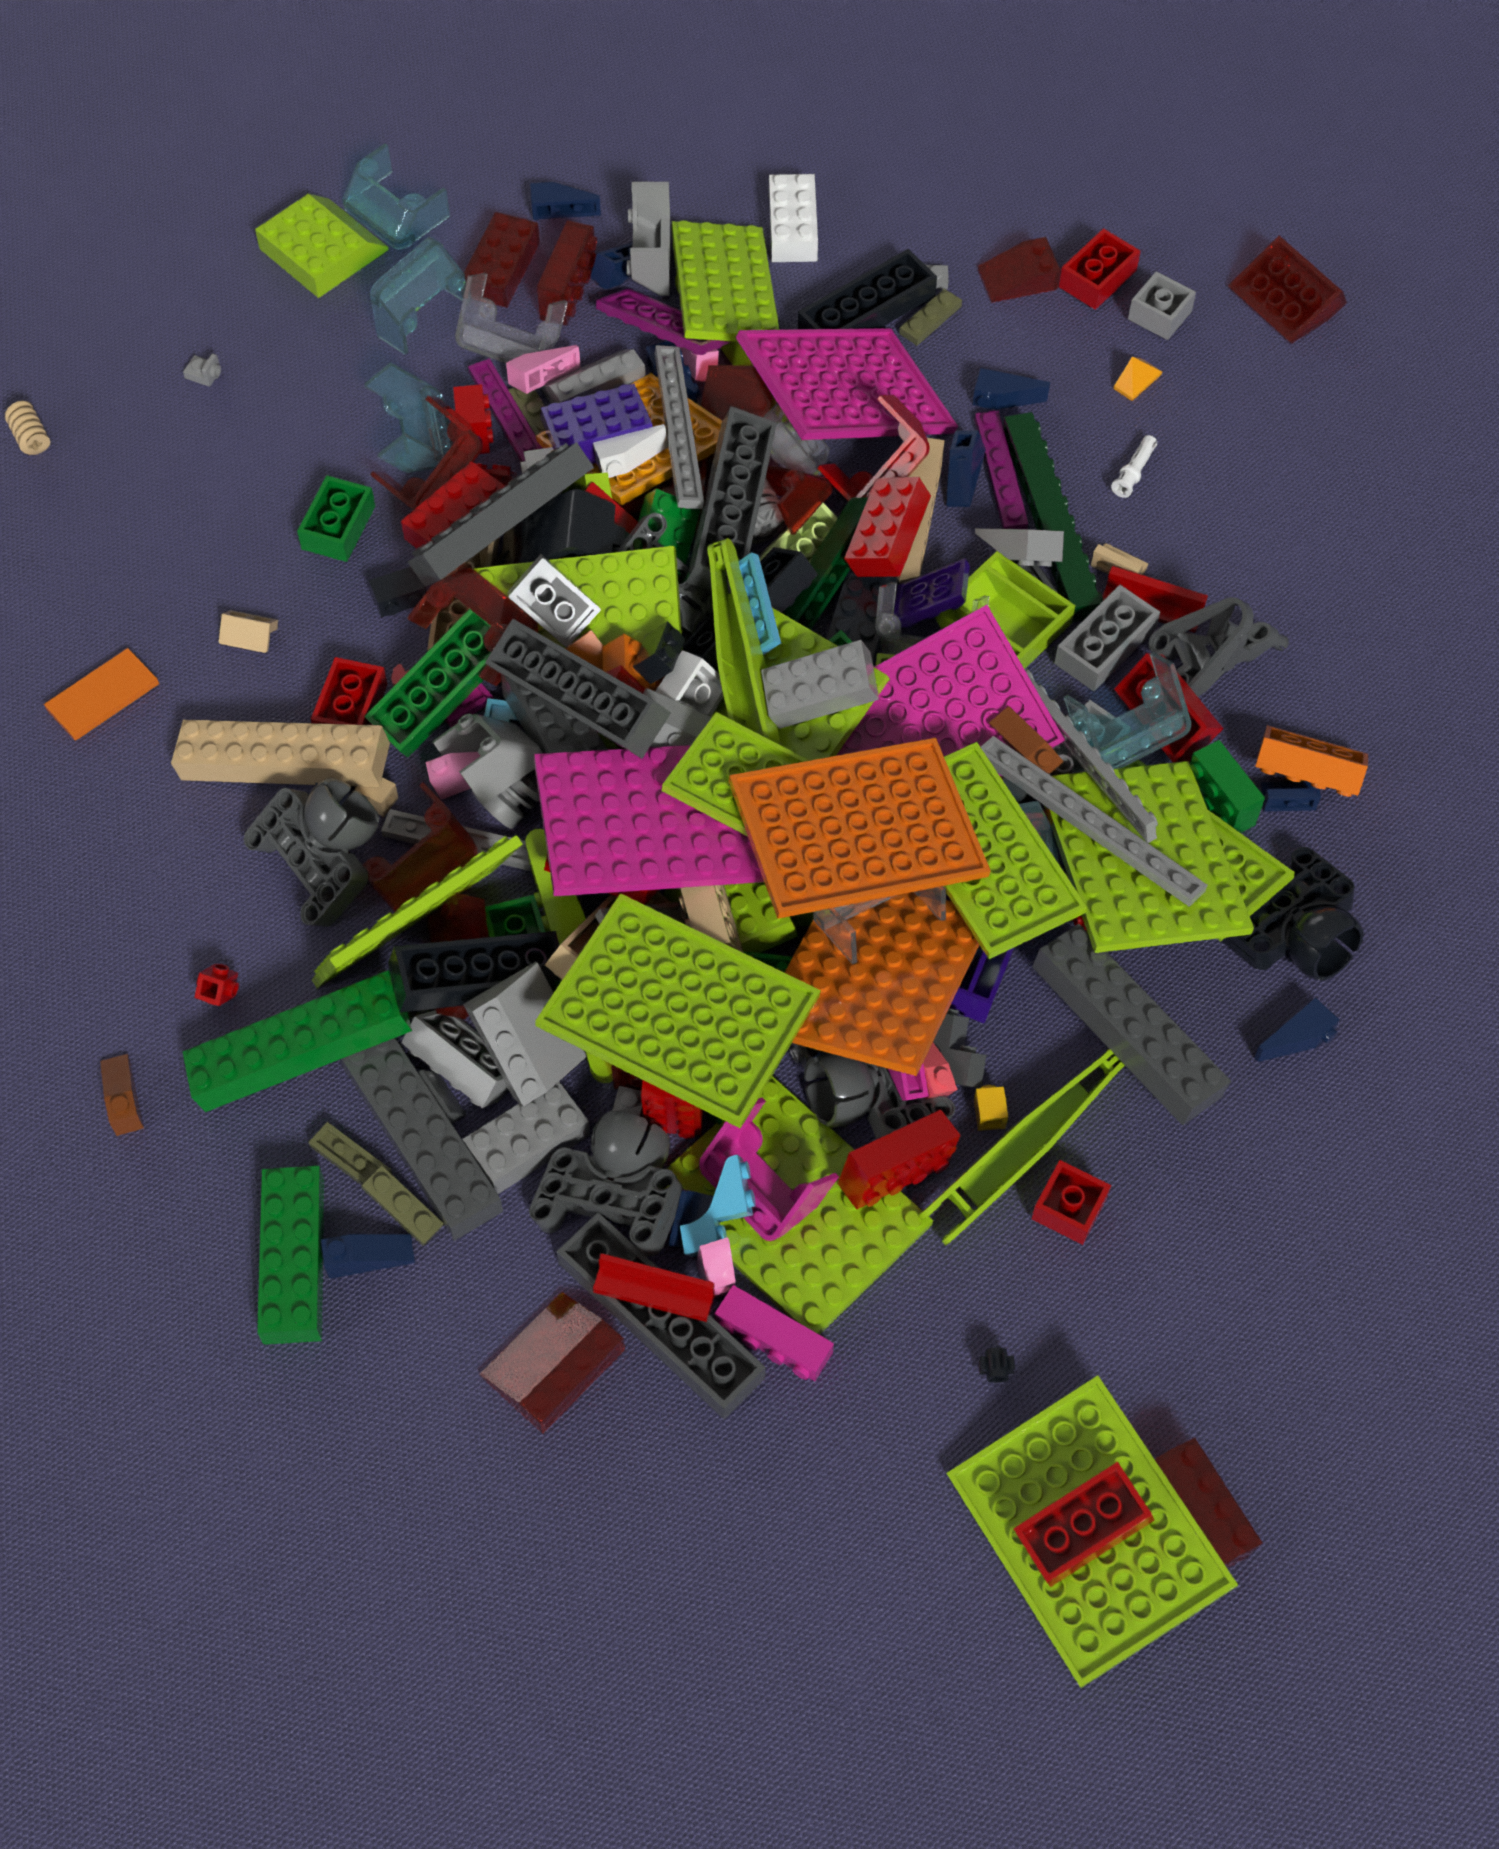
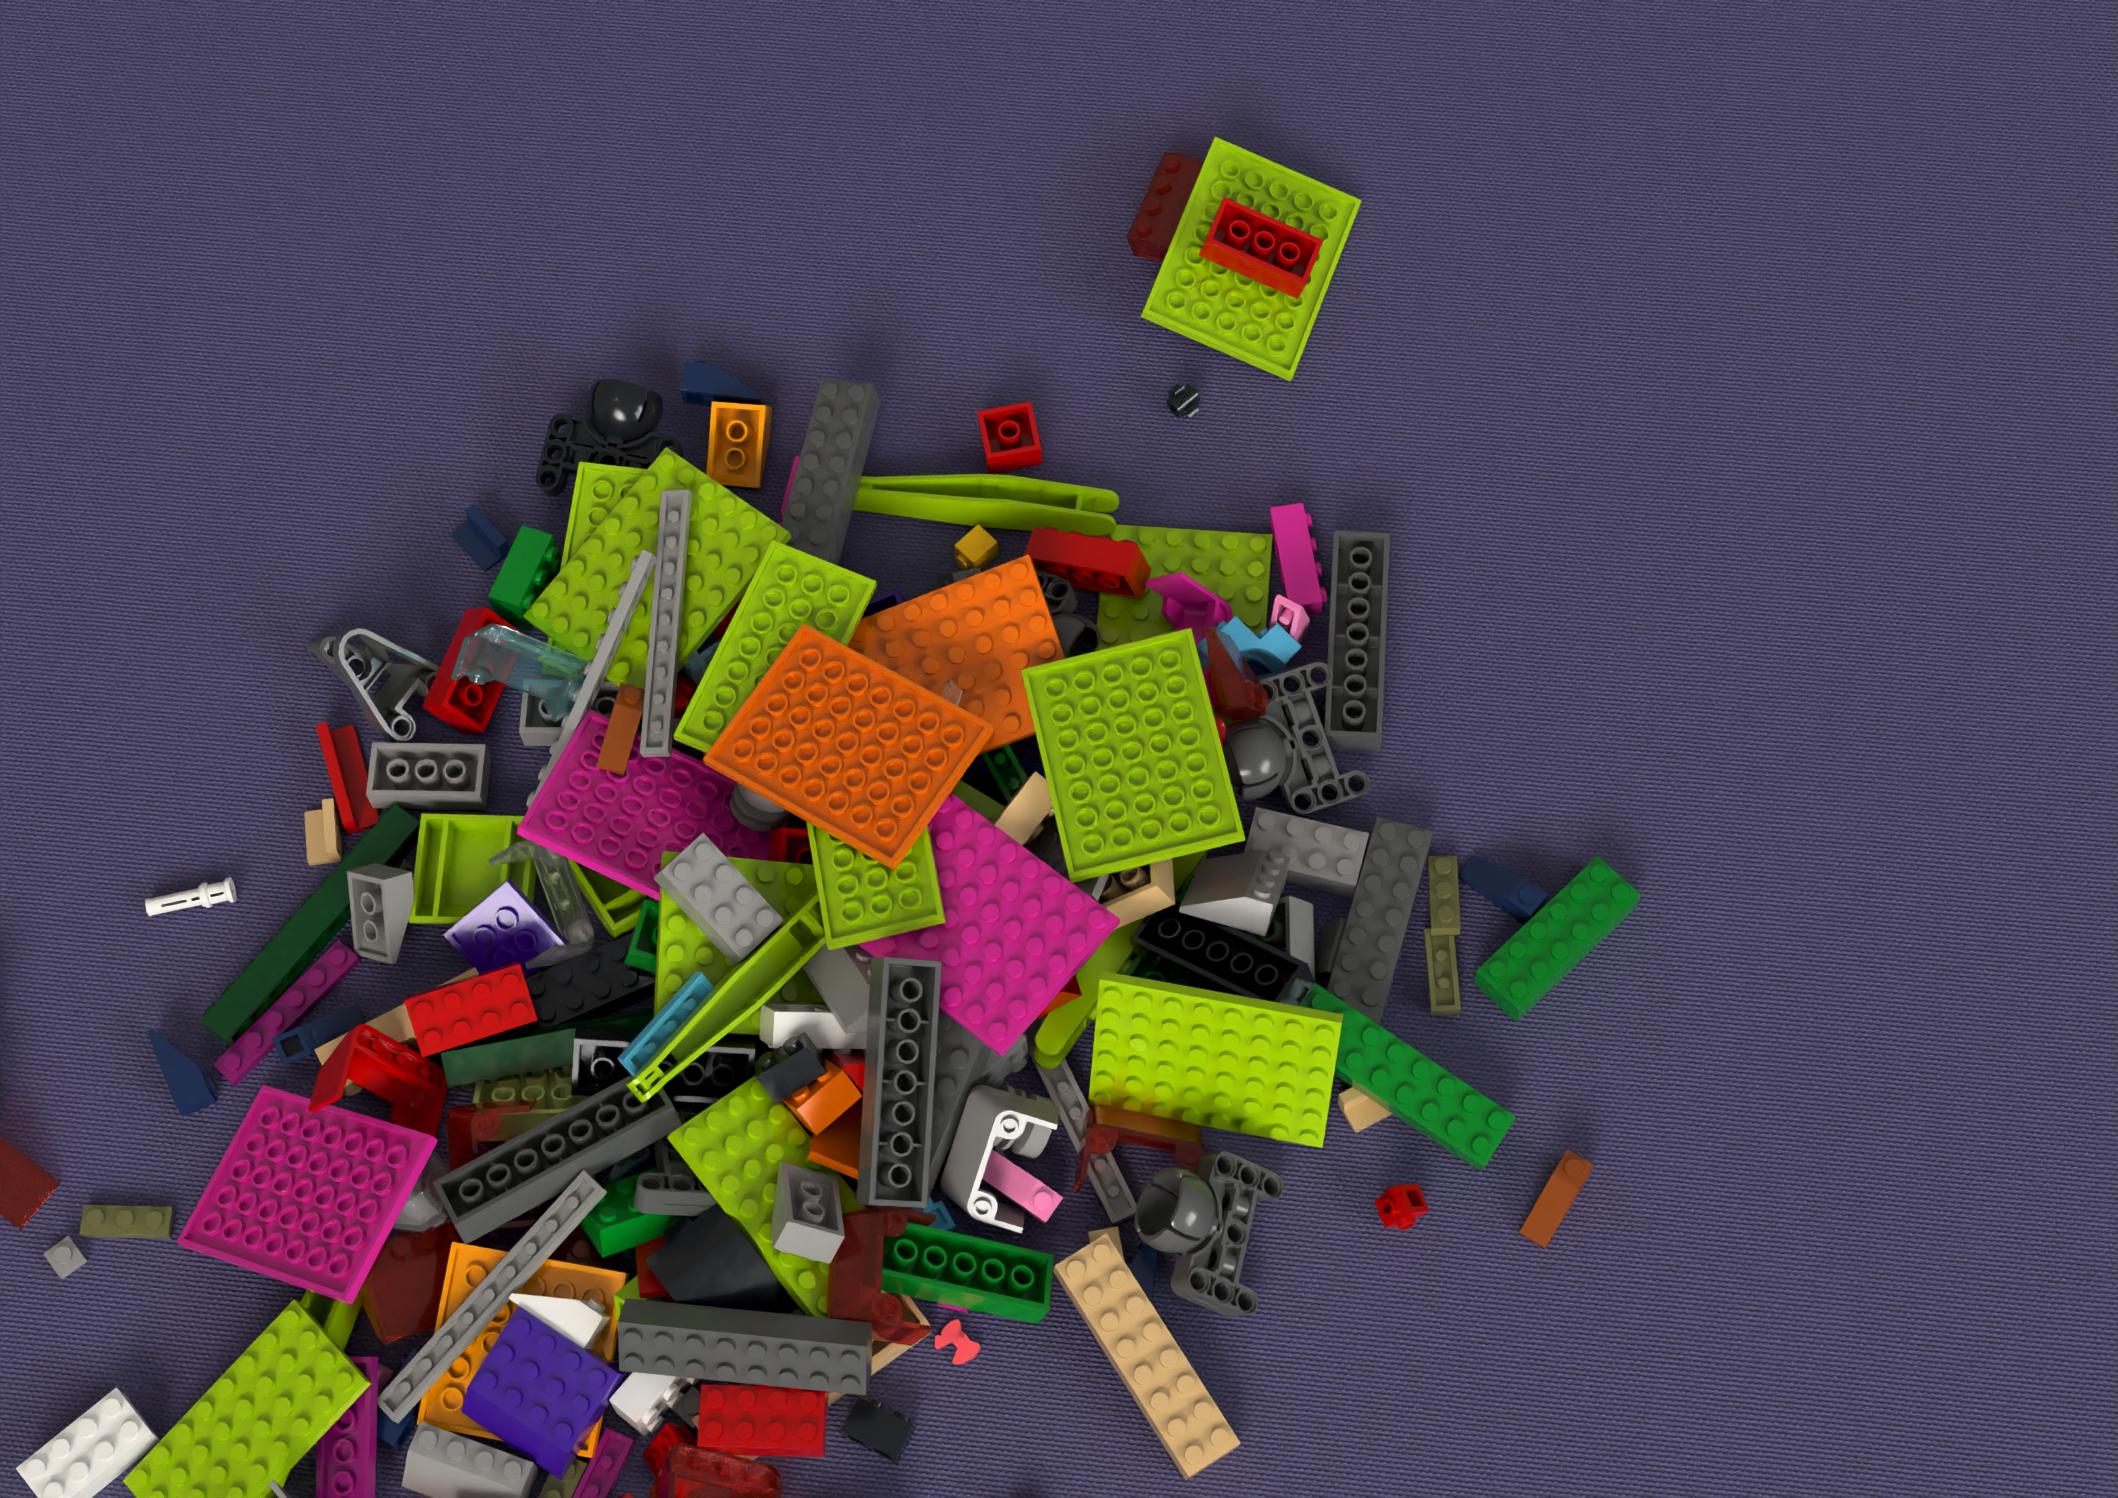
camera: 125 degrees left, 5 degrees up
(349, 693) = (1037, 1355): red brick -> none
(553, 1361) = (1456, 689): clear red slope -> none
(654, 1287) = (1350, 642): red panel -> none
(687, 1149) = (1234, 684): none -> clear red slope
(874, 296) = (163, 1281): black brick -> none
(1136, 378) = (70, 975): light orange slope -> none
(1235, 1013) = (738, 443): none -> light orange slope
(1312, 761) = (440, 531): orange brick -> none

